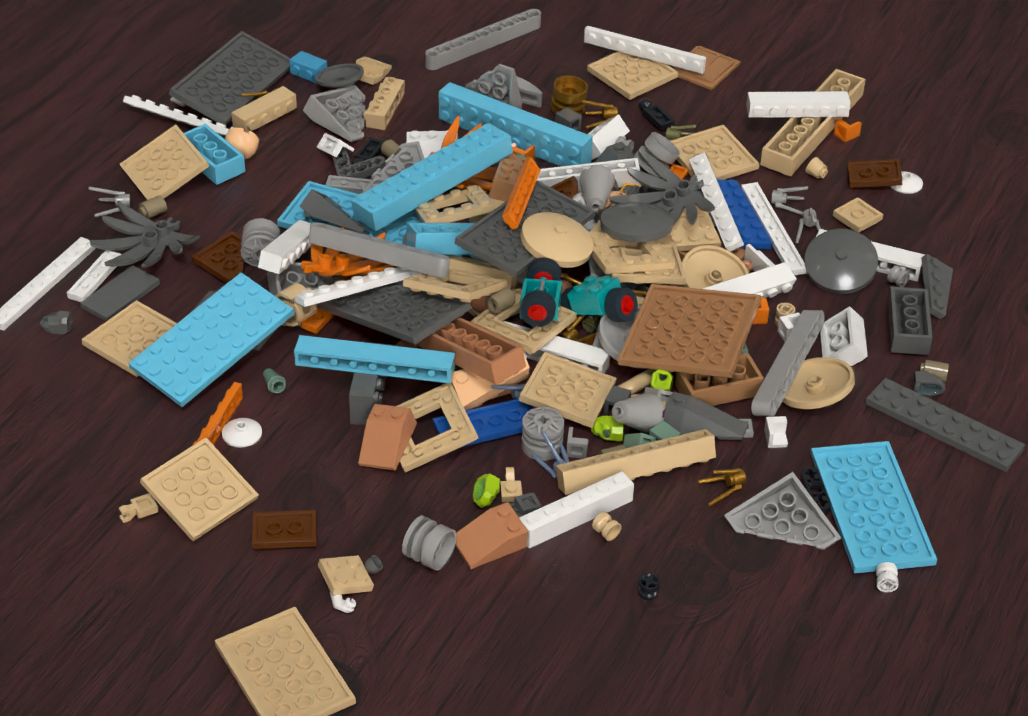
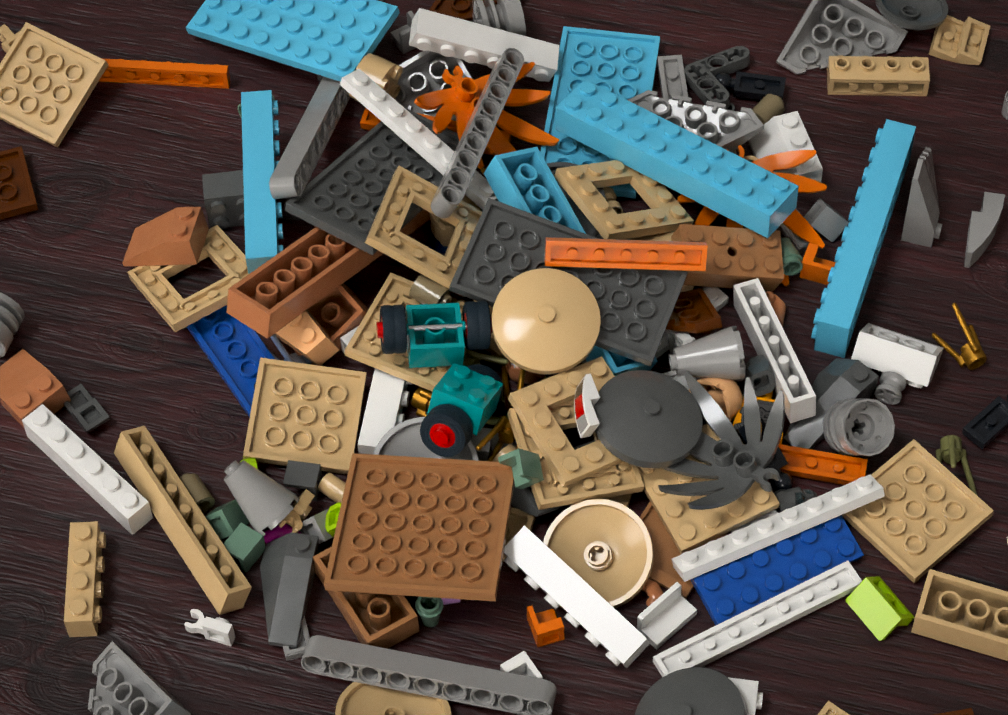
camera: 80 degrees right, 15 degrees up
(241, 432) = (166, 103): white dish -> none
(324, 208) = (586, 59): dark grey wedge -> none
(332, 145) = (750, 44): white panel -> none
(384, 332) = (309, 140): none -> light grey beam
(486, 490) = (103, 367): lime rock -> none
(510, 487) = (120, 394): tan plate -> none
(533, 425) = (210, 403): light grey wheel -> none
(559, 461) = (160, 433): sand blue plant -> none
(569, 92) = (976, 288): pearl gold wheel -> none
(569, 118) = (926, 304): dark grey brick -> none
(576, 446) = (214, 448): light grey panel -> none
(604, 524) = (66, 509): tan wheel -> none
(625, 237) = (585, 399): none -> white slope
(663, 273) = (525, 467): none -> sand green panel
(670, 522) = (84, 579): none -> tan brick
(726, 461) = (213, 629): none -> white plate
(733, 478) = (185, 645): pearl gold plant -> none
(773, 181) = (878, 607): none -> lime panel
(775, 432) = (287, 684): white panel -> none
(780, 197) = (840, 622): light grey plant -> none
(782, 310) = (548, 668): tan wheel -> none
(809, 219) = (798, 669): light grey plant -> none
(816, 168) = (936, 665): tan hat -> none

